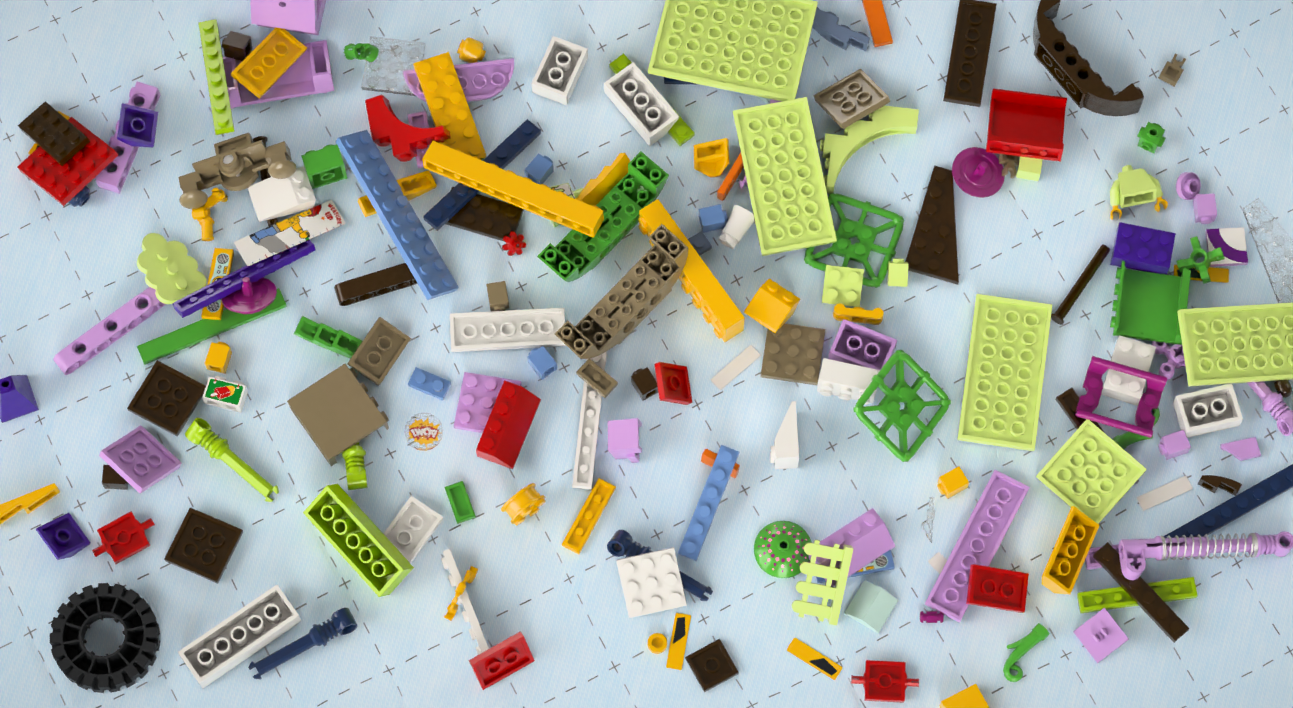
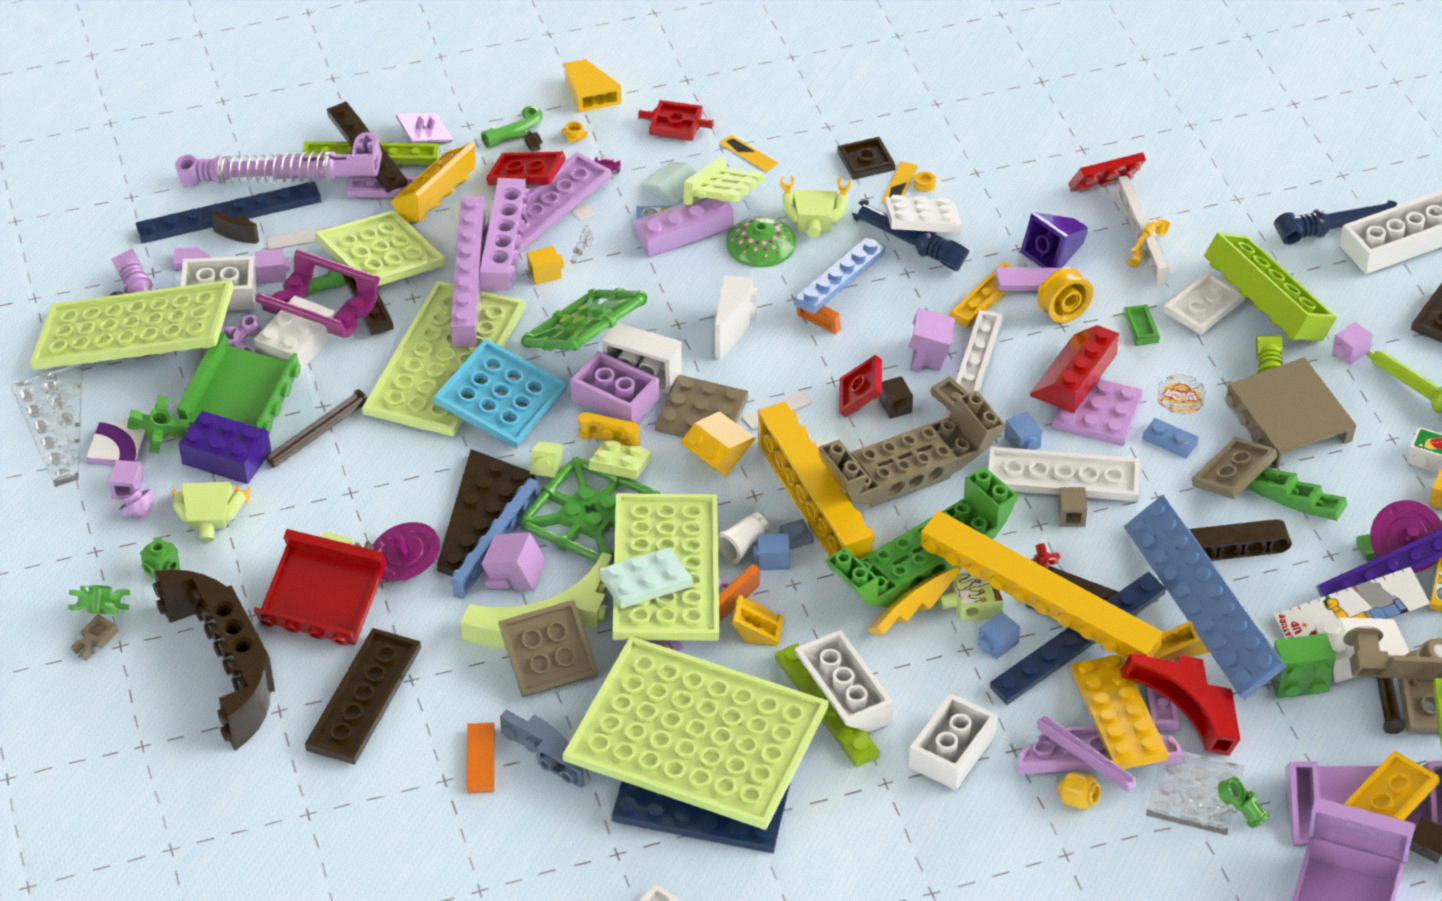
camera: 170 degrees left, 25 degrees down
(290, 500) = (1352, 343): none -> lavender brick
(468, 64) = (1086, 753): none -> lavender axle
(535, 577) = (1052, 239): none -> dark purple slope
(553, 531) = (1021, 278): none -> lavender tile
(744, 583) = (814, 209): none -> yellowish green torso
(794, 150) = (645, 577): none -> light aqua plate
(896, 174) = (513, 561): none -> lavender plate
(915, 206) = (506, 524): none -> medium blue plate
(949, 303) = (503, 406): none -> medium azure piece
(970, 648) = (574, 131): none -> yellow plate
(991, 450) = (504, 235): none -> lavender brick
(1002, 632) = (533, 140): none -> dark brown plate
(1009, 449) = (467, 272): none -> lavender brick
(1173, 84) = (99, 599): none -> bright green pin

